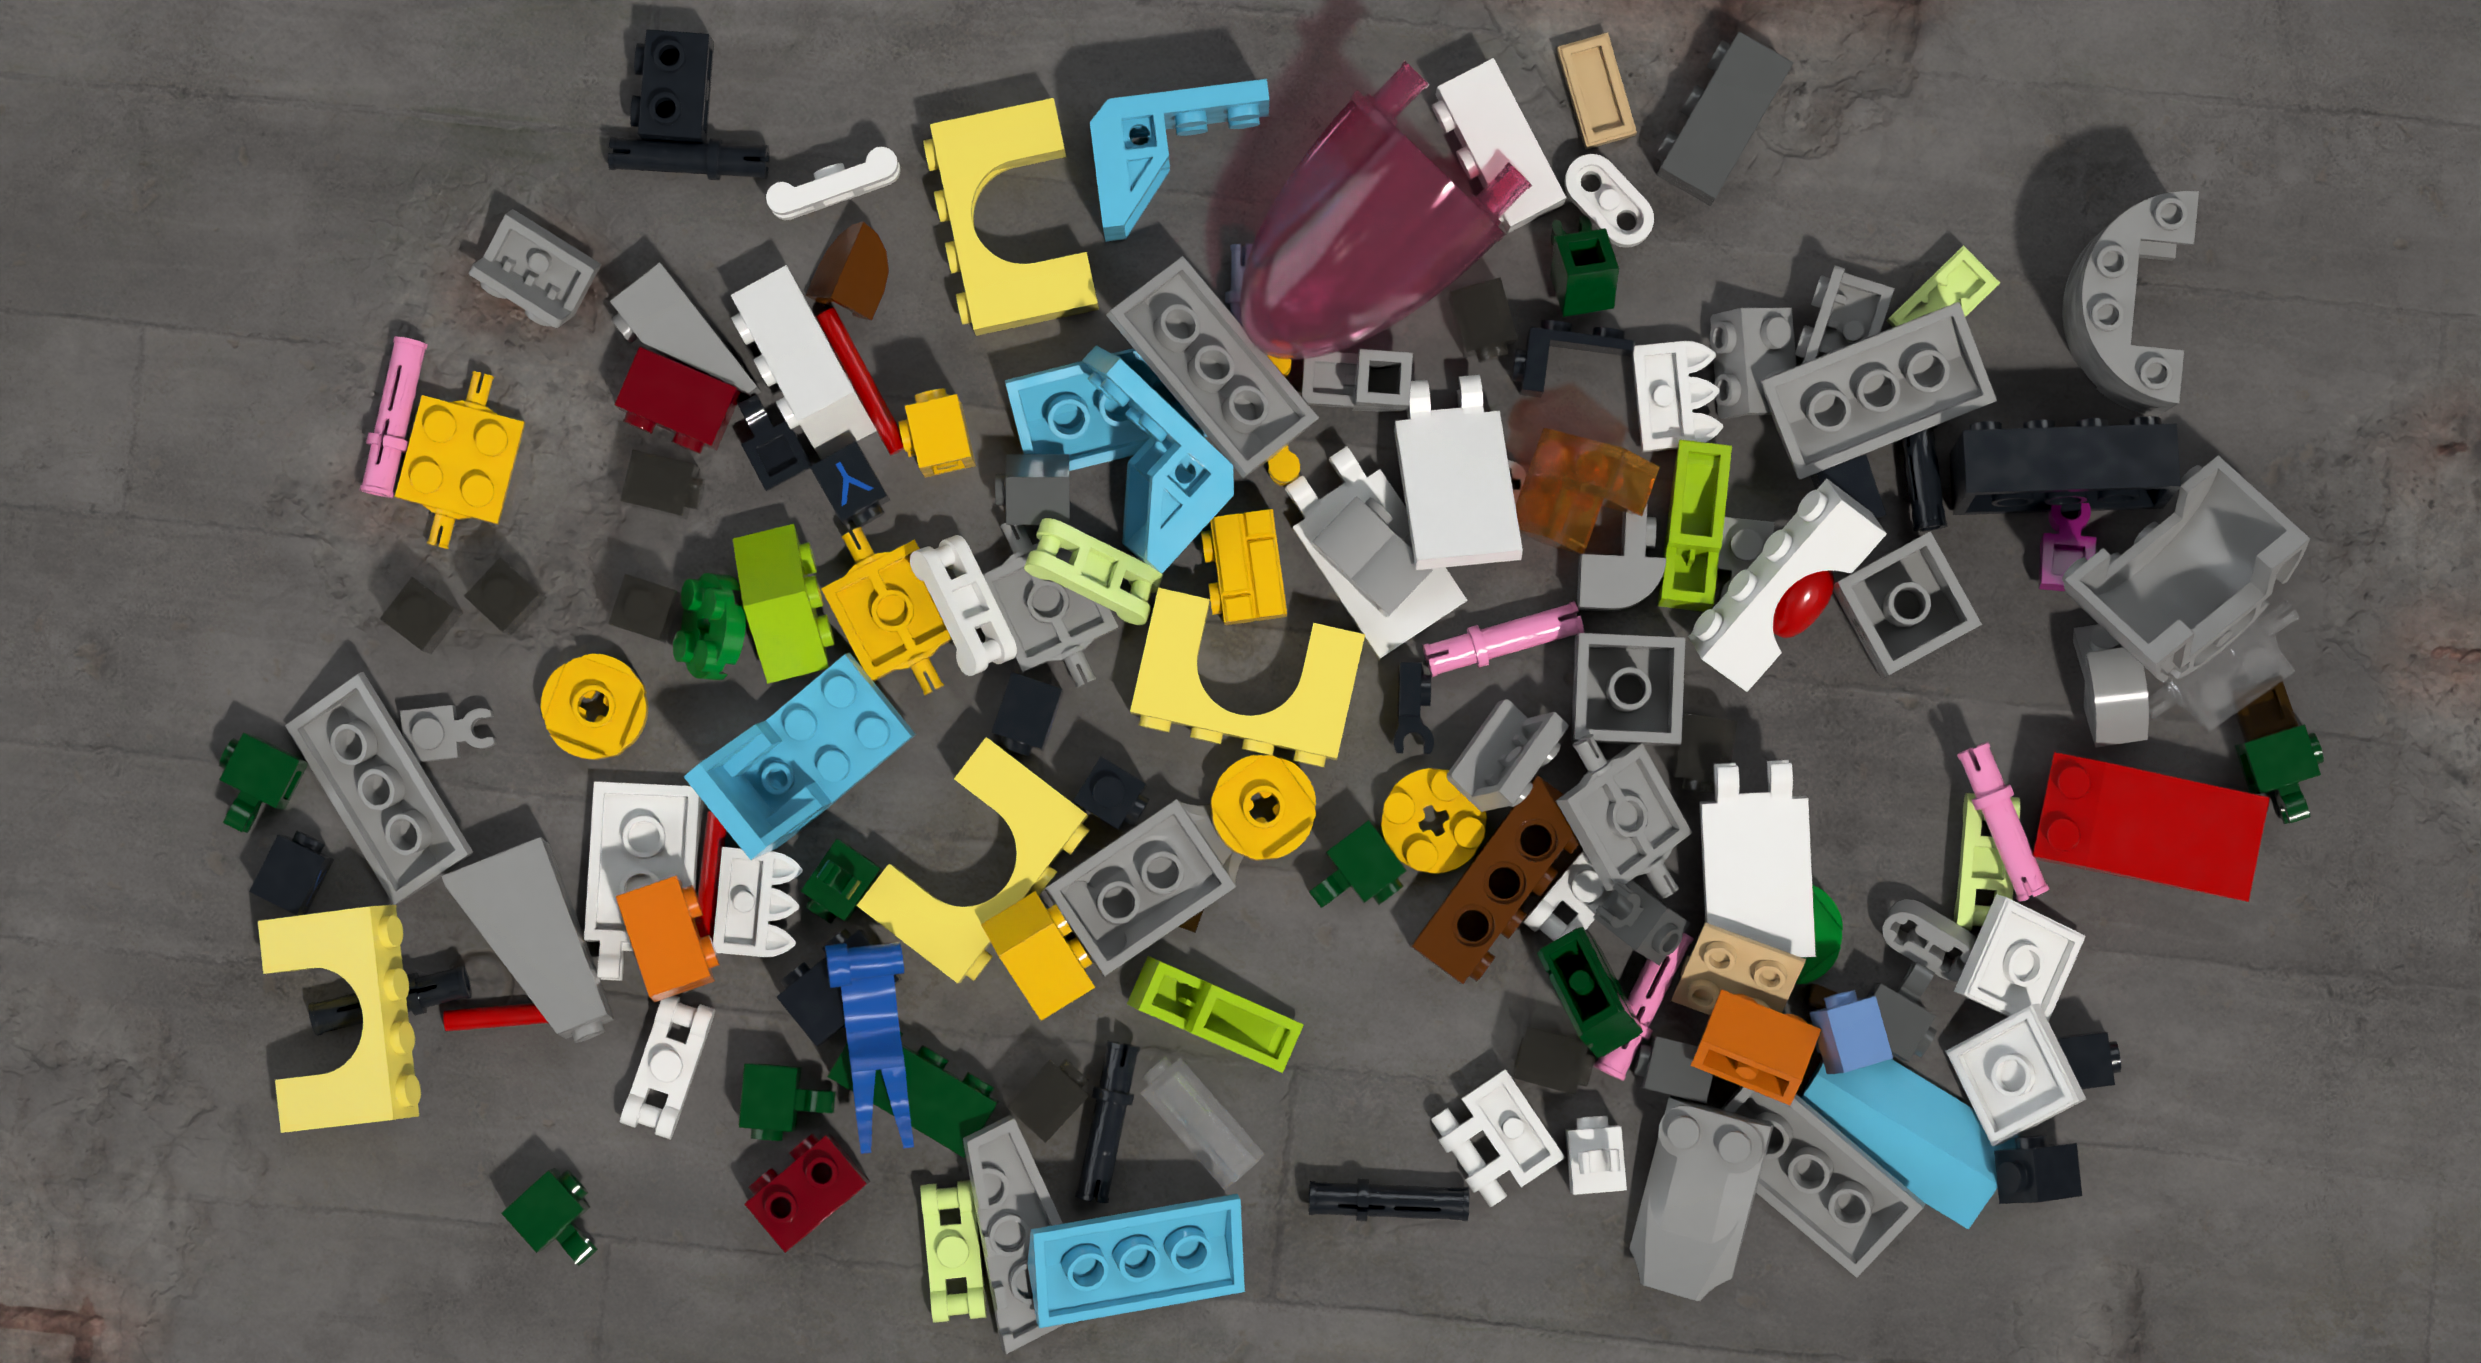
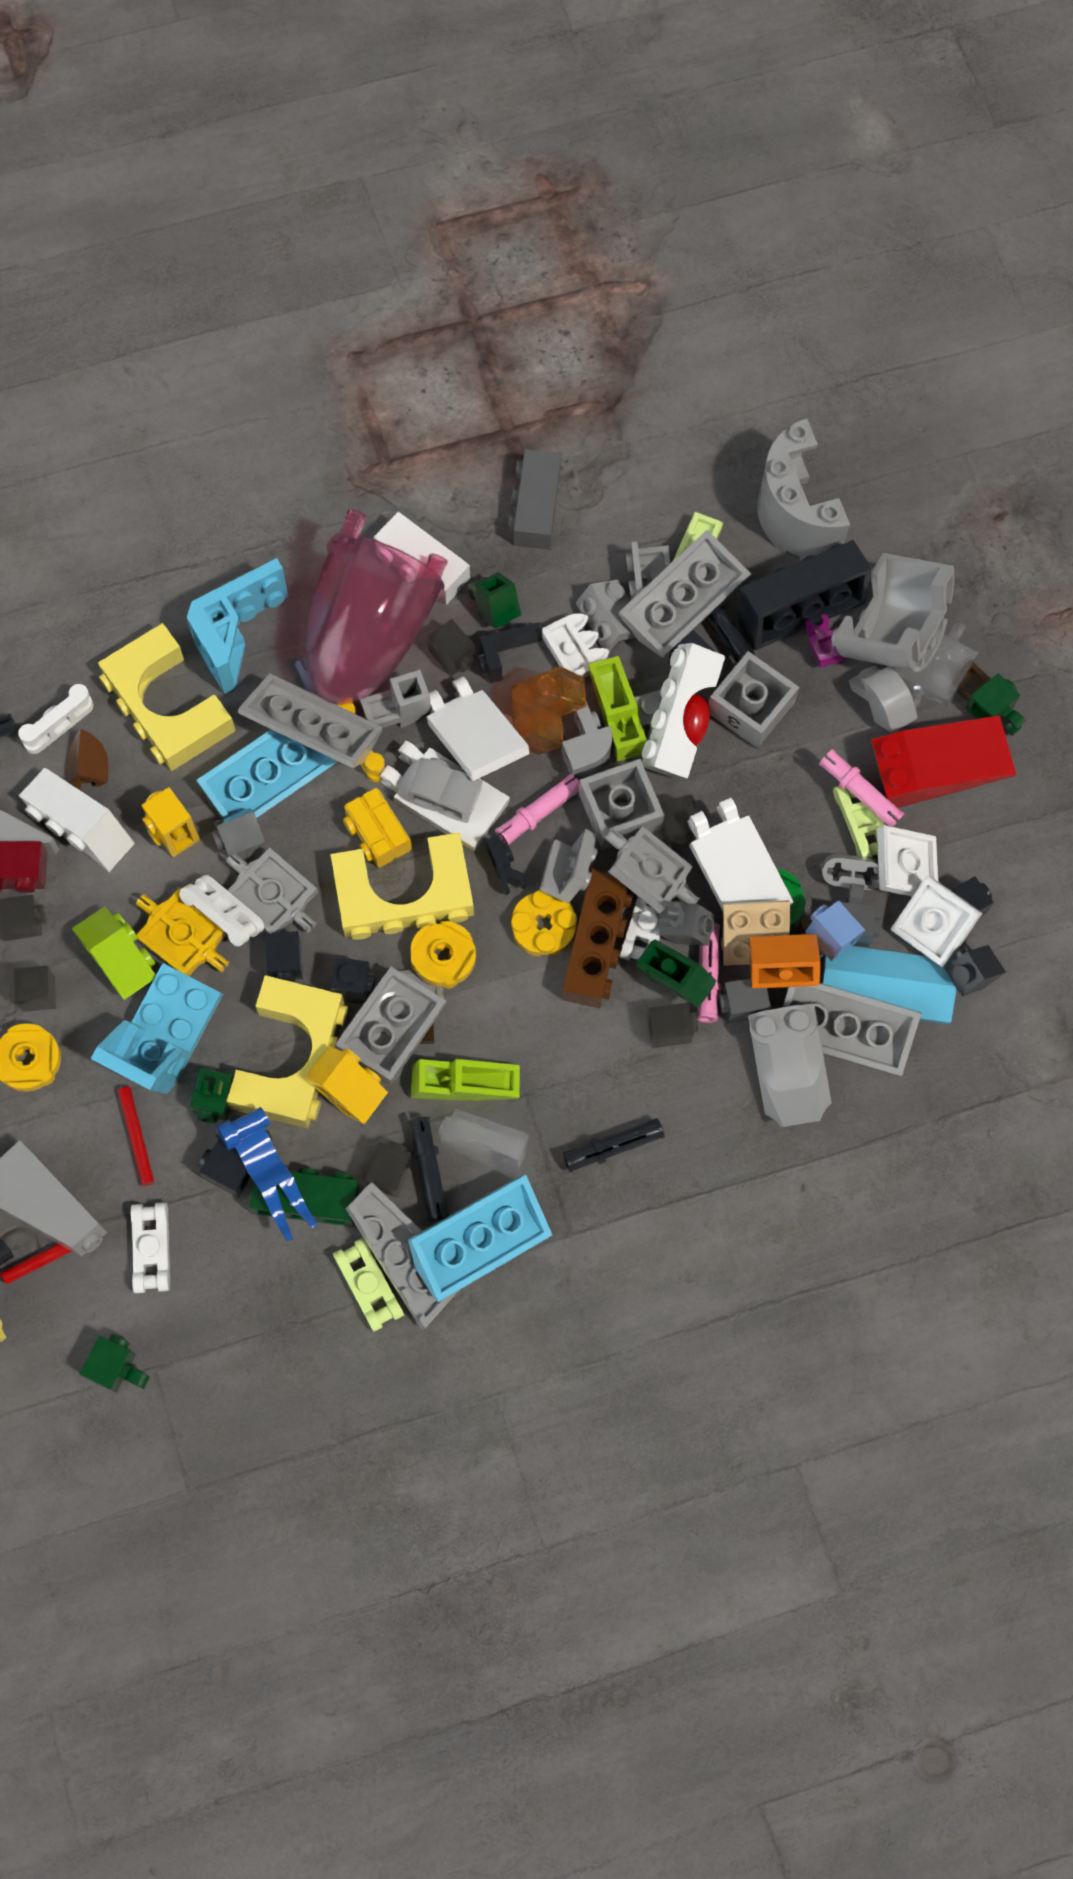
camera: 25 degrees left, 15 degrees down
(635, 841) = (91, 1142): white tile -> none
(667, 937) = (119, 1165): orange brick -> none
(710, 626) = (77, 979): green plate -> none
(750, 902) = (162, 1130): white plate -> none
(773, 1099) = (222, 1237): dark green brick -> none
(774, 450) = (77, 873): black plate -> none
(805, 1191) = (263, 1285): dark red brick -> none
(851, 485) = (130, 873): black brick -> none
(861, 380) = (134, 833): red bar -> none
(1094, 570) = (289, 859): yellowish green plate -> none
(1173, 479) = (317, 784): medium azure bracket -> none
(1362, 864) = (515, 962): dark green brick -> none
(1511, 1128) = (665, 1073): white plate -> none
(1595, 1156) = (721, 1068): white brick -> none
(1596, 91) = (462, 515): tan tile -> none
(1611, 199) = (495, 561): white plate -> none

